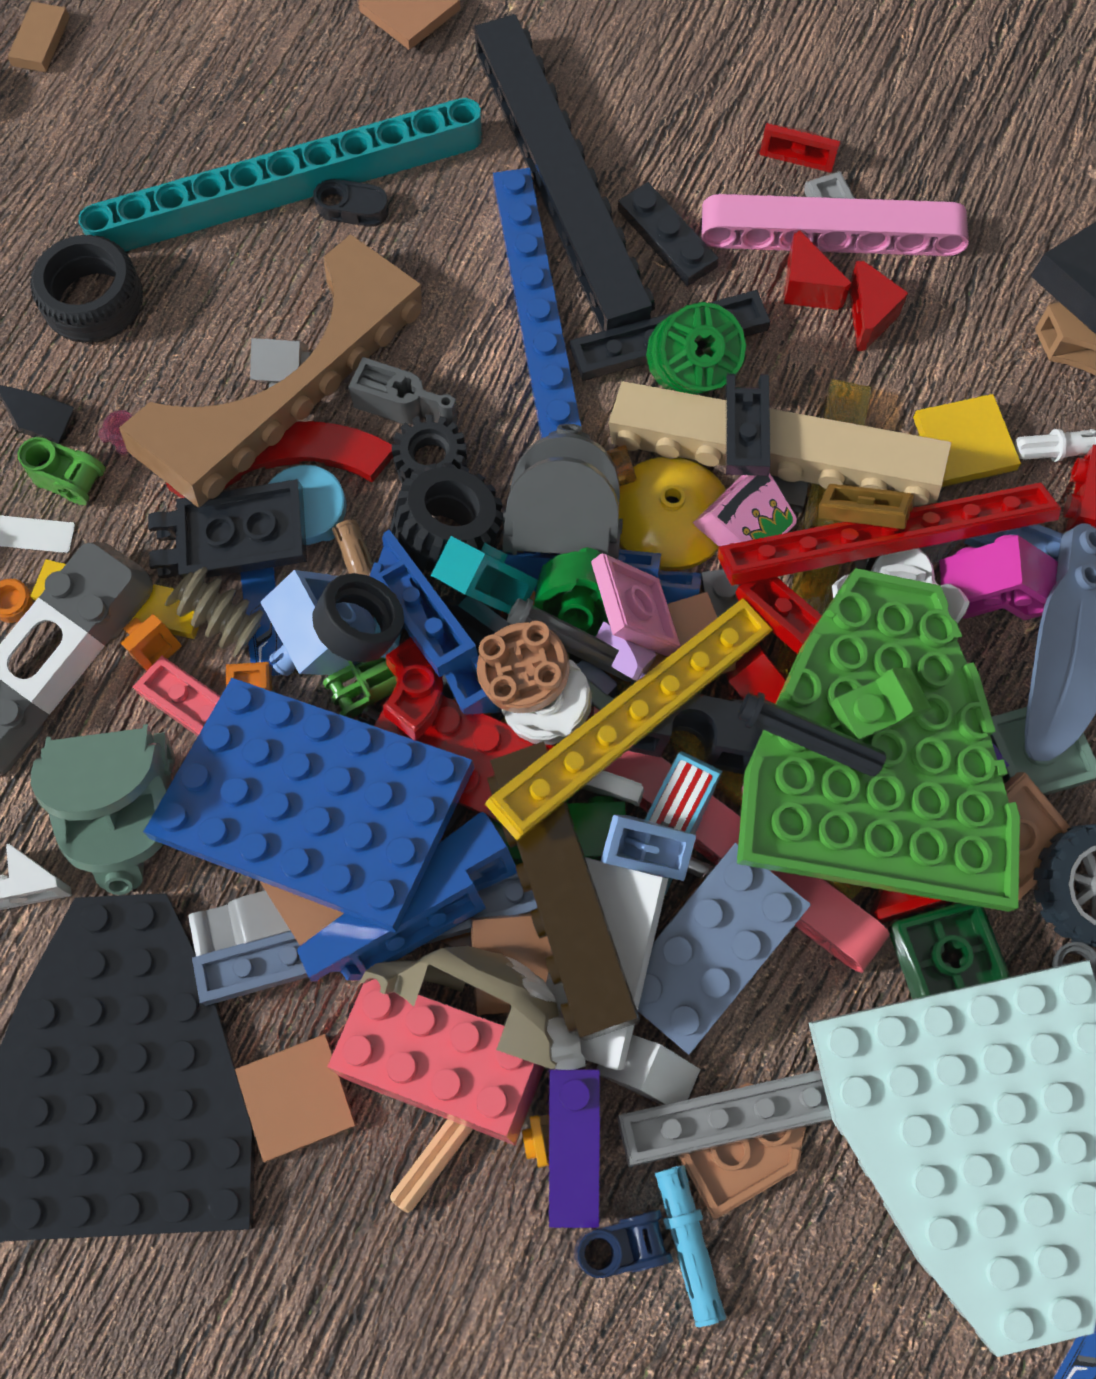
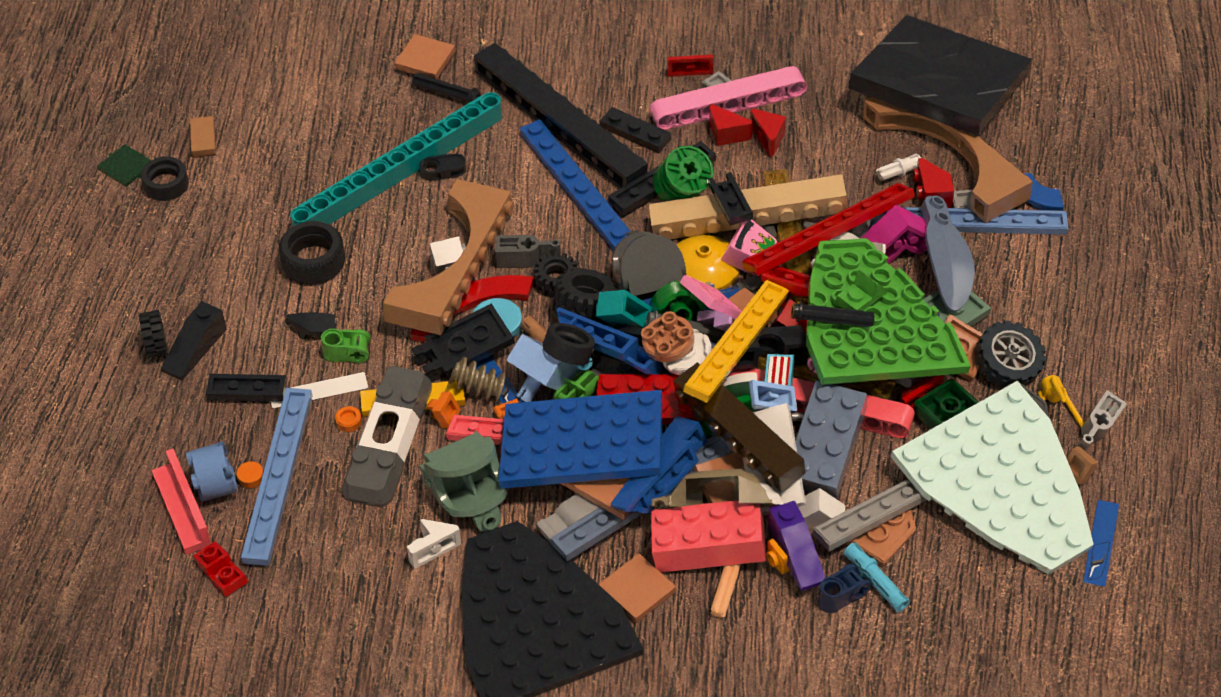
camera: 20 degrees left, 20 degrees down
(110, 431) = (369, 317): clear pink plate -> none
(416, 68) = (445, 88): none -> black axle
(416, 692) = (612, 370): red tile -> none
(866, 506) = (811, 219): pearl gold tile -> none
(977, 438) = (857, 177): yellow tile -> none

